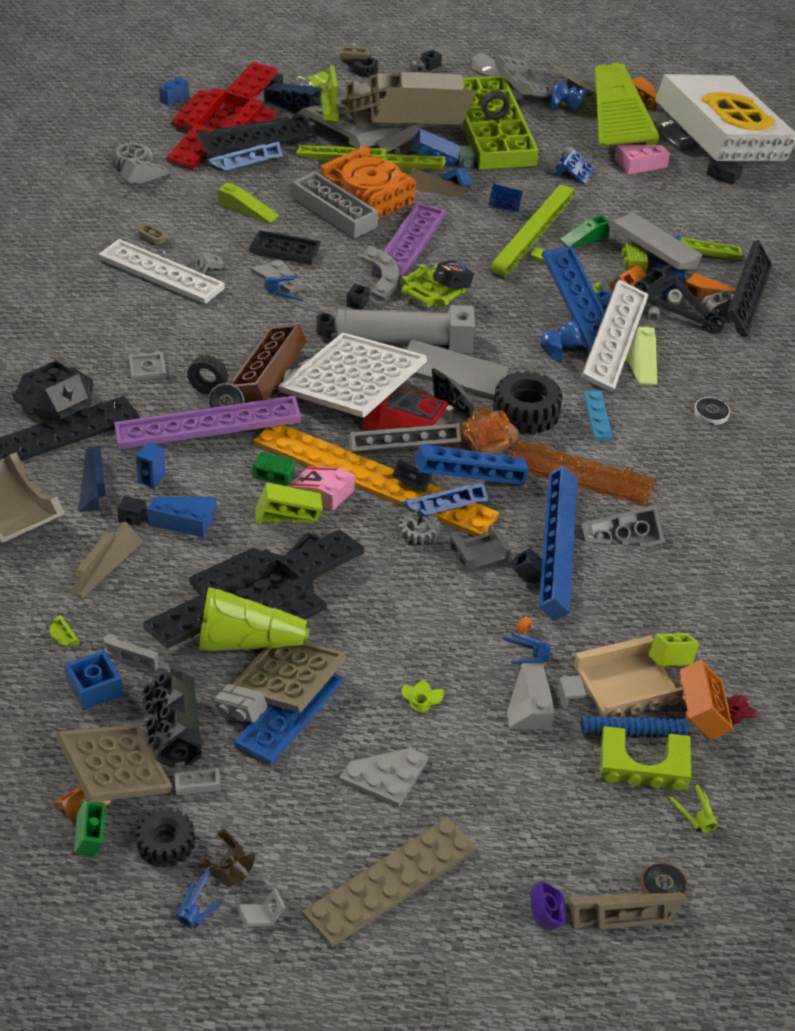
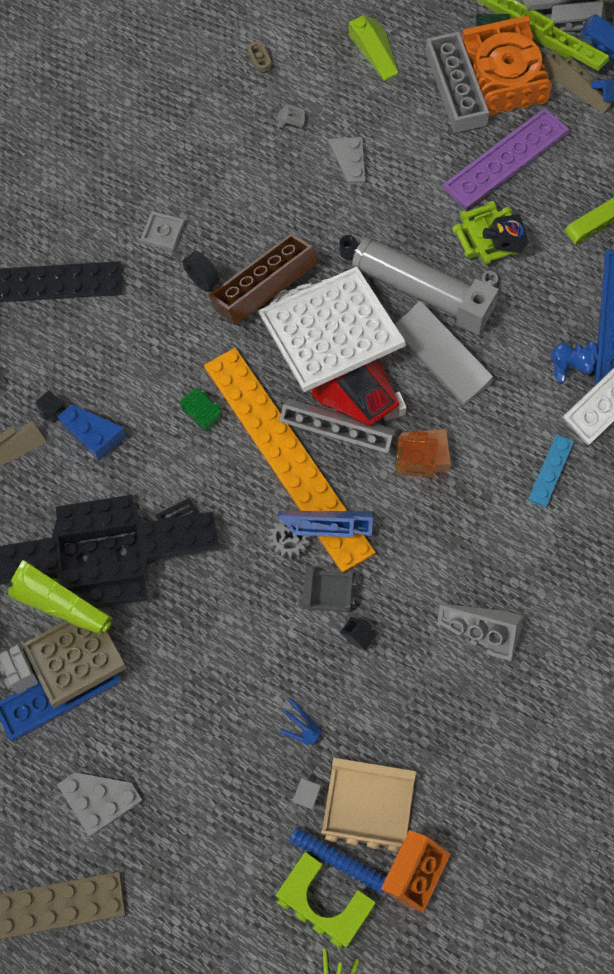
camera: 35 degrees right, 25 degrees up
(54, 390) = (58, 236): black piece -> none
(92, 480) = (42, 352): dark blue wedge -> none
(150, 465) = (90, 362): blue brick -> none
(162, 271) = (241, 112): white plate -> none
(207, 422) = (173, 328): medium lavender plate -> none
(225, 395) = (201, 309): black tile -> none
(274, 283) = (335, 170): blue plant -> none
(285, 246) = (377, 121): black plate -> none
(287, 503) = (186, 461): lime wedge -> none
(331, 482) = (233, 448): bright pink slope -> none
(357, 297) = (405, 225): black brick -> none
(389, 271) = (455, 199): light grey plate -> none
(411, 476) = (317, 477): black piece -> none
(422, 694) = (180, 728): lime plate -> none
(453, 393) = (416, 390): black wedge -> none
(471, 464) = (364, 492): blue brick -> none
(524, 626) = (312, 699): orange tile -> none
(531, 700) = (266, 784): light grey wedge -> none
(541, 392) = (484, 408): black tyre -> none
(558, 544) = (404, 617): blue brick -> none
(595, 476) = (500, 552): clear orange piece -> none
(673, 649) = (426, 798): lime brick -> none
(740, 708) = (452, 883): dark red plate -> none

